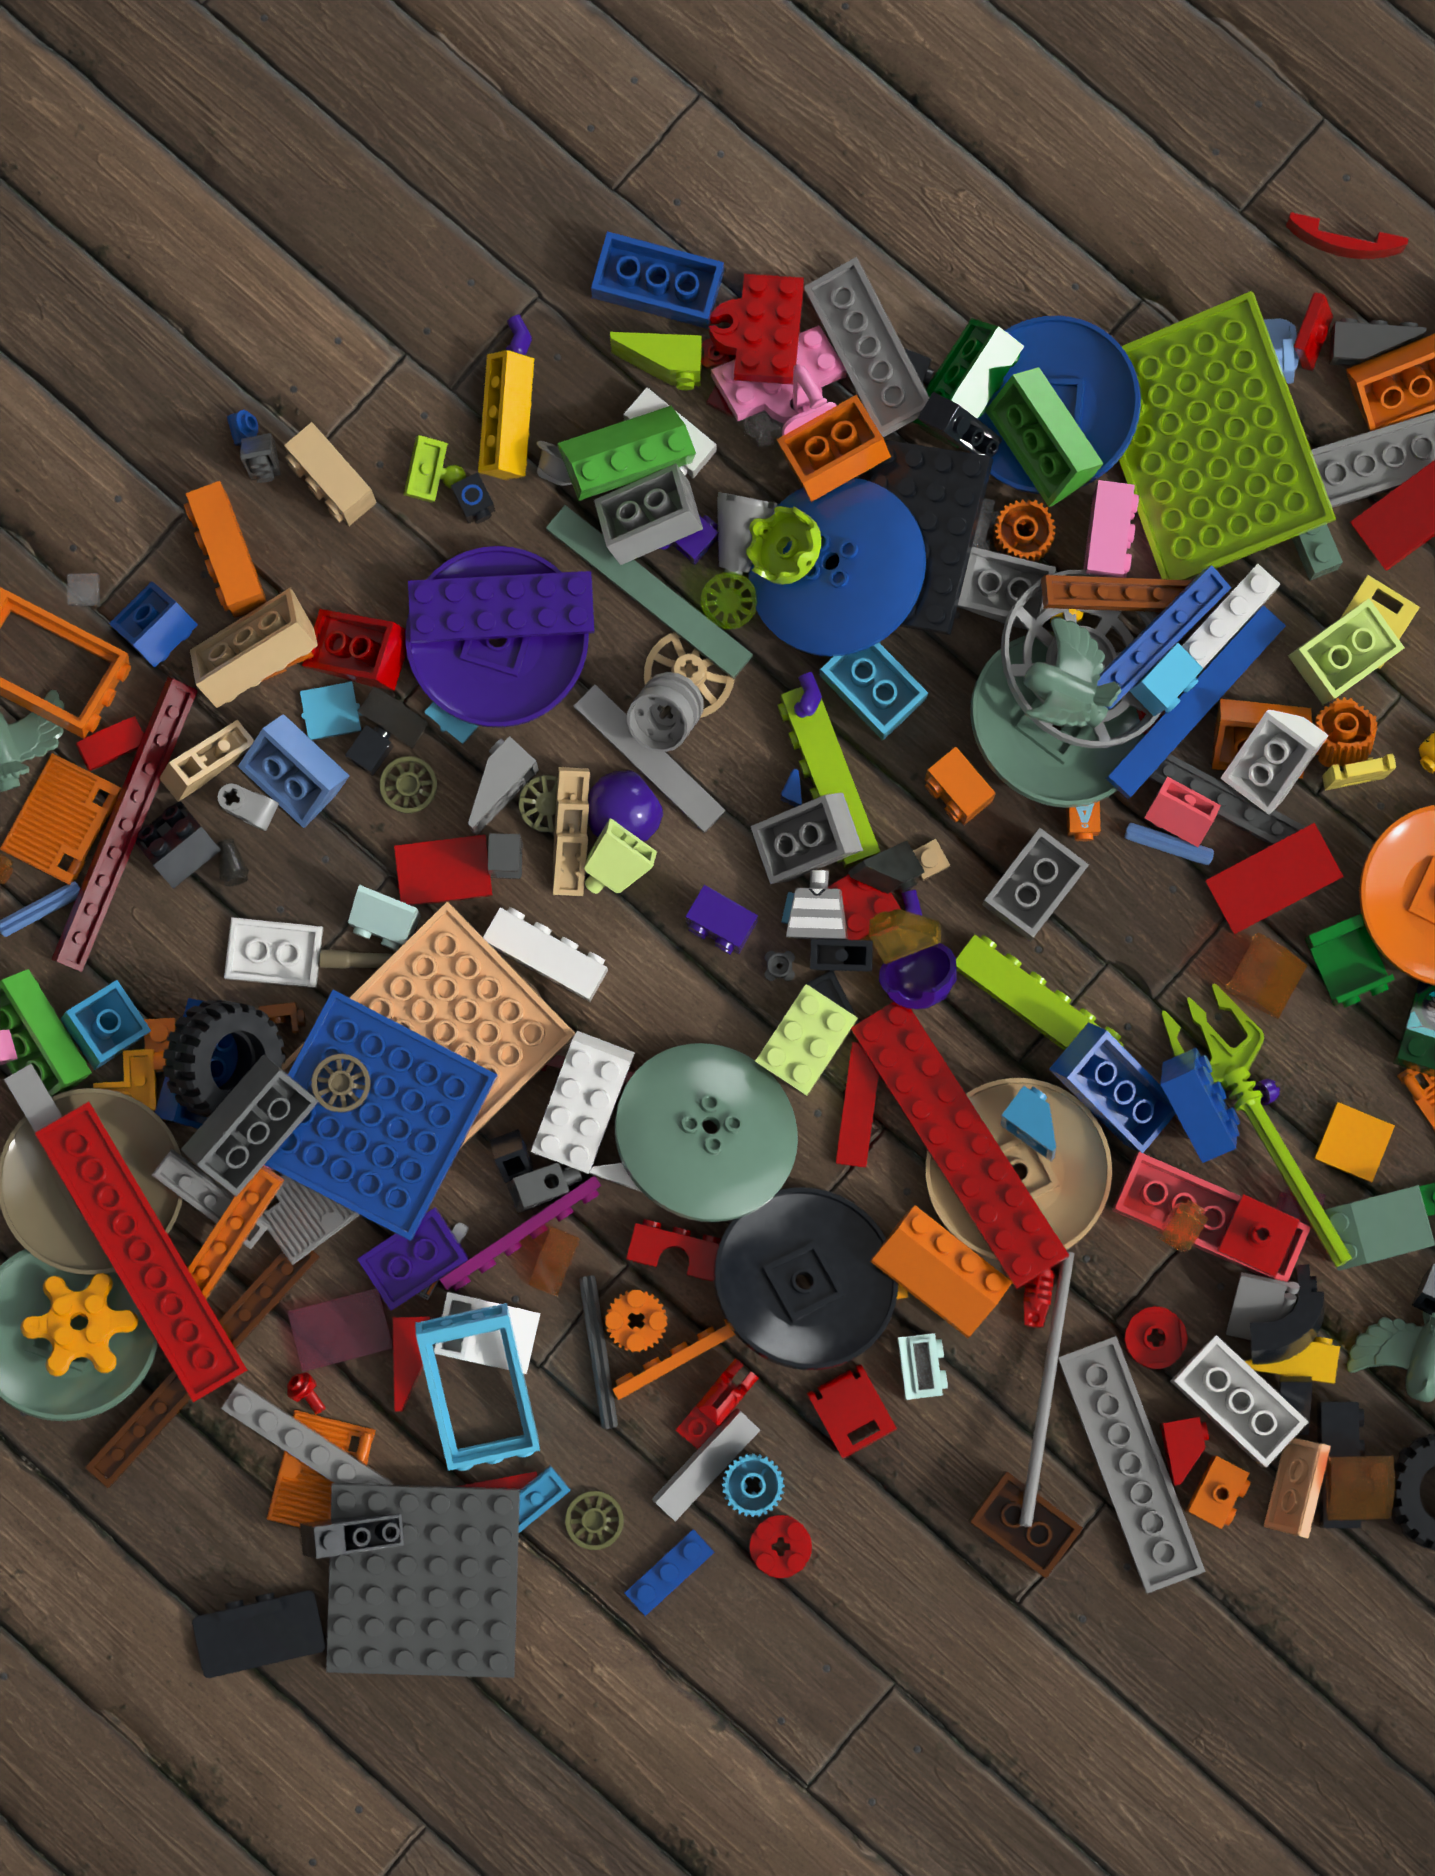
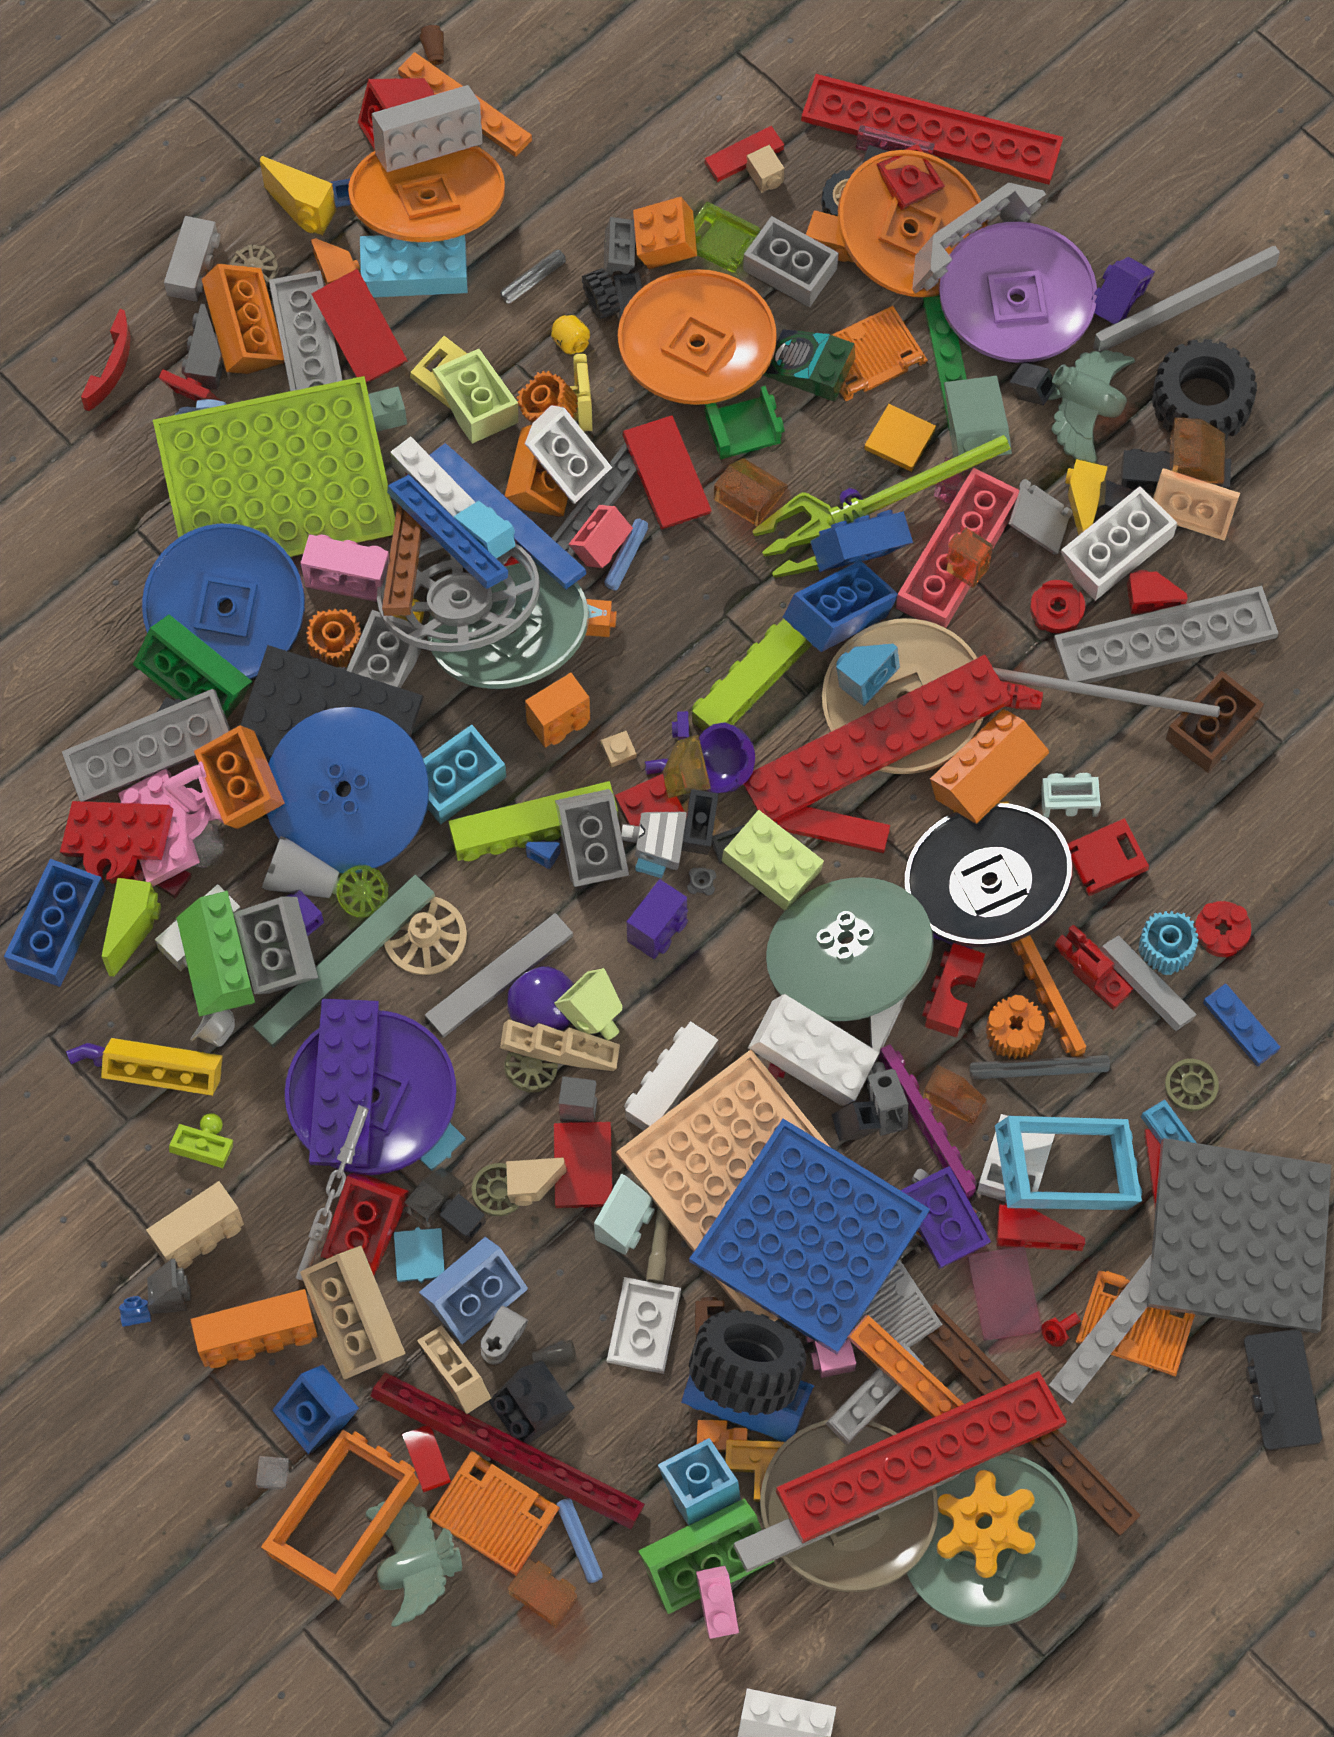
camera: 85 degrees left, 15 degrees down
(249, 1125) = (813, 1333): dark grey brick -> none
(341, 1083) = (778, 1256): dark tan wheel -> none
(351, 1535) = (1199, 1287): black slope -> none
(410, 616) = (346, 1155): none -> light grey piece
(414, 816) = (532, 1179): none -> tan slope
(473, 499) = (236, 1105): black brick -> none
(502, 779) = (507, 1100): light grey slope -> none
(665, 712) = (461, 947): light grey wheel -> none
(773, 534) = (305, 829): lime plate -> none
(810, 698) = (464, 822): dark purple arm -> none
(890, 869) = (625, 775): pearl dark grey slope -> none
(956, 925) = (681, 728): none -> dark purple plate
(959, 426) = (234, 671): black slope -> none
(1035, 884) = (652, 659): light grey brick -> none
(1043, 436) = (253, 606): bright green slope -> none
(1072, 683) = (479, 594): sand green animal -> none
(1218, 1492) = (1193, 570): orange brick -> none
(1258, 1235) = (978, 506): red tile -> none
(1292, 1334) = (1069, 503): black arch -> none

